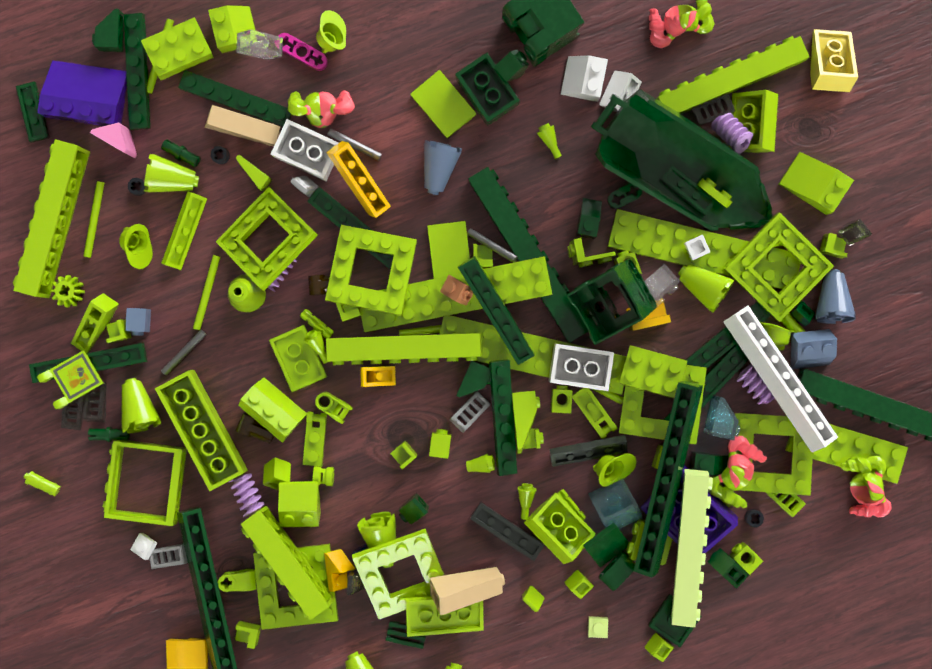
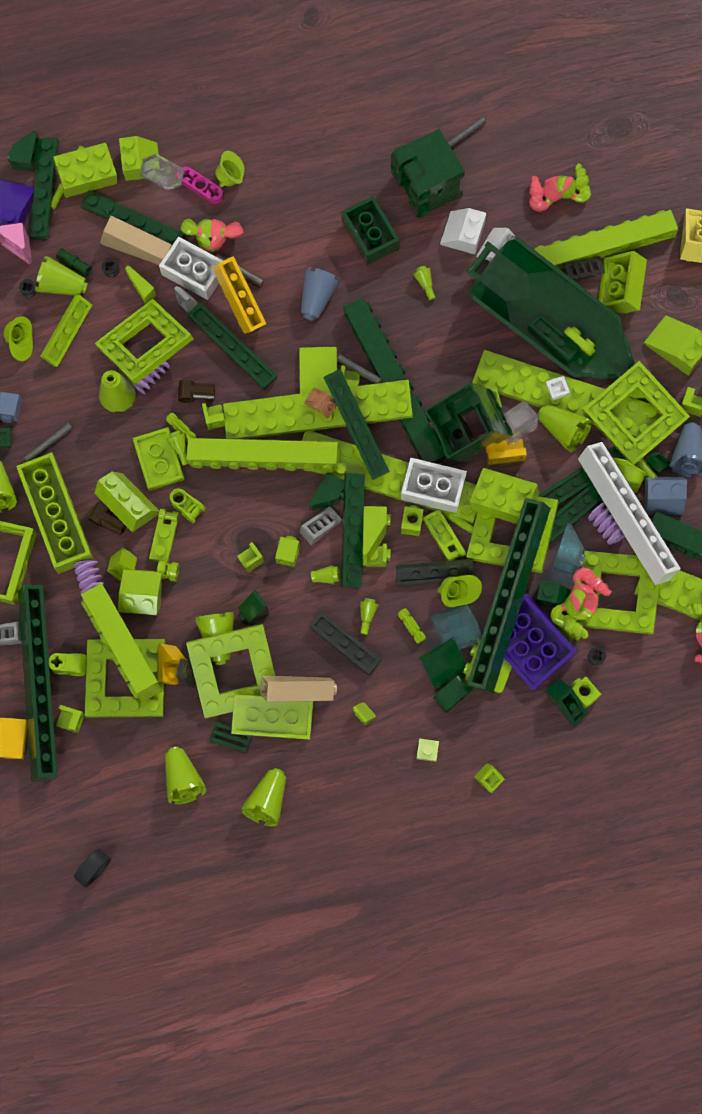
camera: 10 degrees right, 15 degrees down
(206, 292) = (78, 390): lime bar -> none
(356, 238) = (255, 408): lime plate -> none
(378, 376) = (233, 479): yellow slope -> none
(443, 104) = (327, 242): lime tile -> none
(512, 65) = (396, 209): dark green slope -> none
(559, 528) = (396, 643): lime slope -> none
(576, 251) = (446, 387): lime bracket -> none
(579, 584) = (412, 705): lime slope -> none
(589, 218) = (455, 357): dark green slope -> none
(627, 199) = (492, 336): dark green beam -> none
(662, 624) = (507, 751): dark green tile -> none
(690, 548) = (526, 669): yellowish green brick -> none
(732, 132) = (600, 287): lavender piece -> none
(794, 509) = (627, 646): lime slope -> none

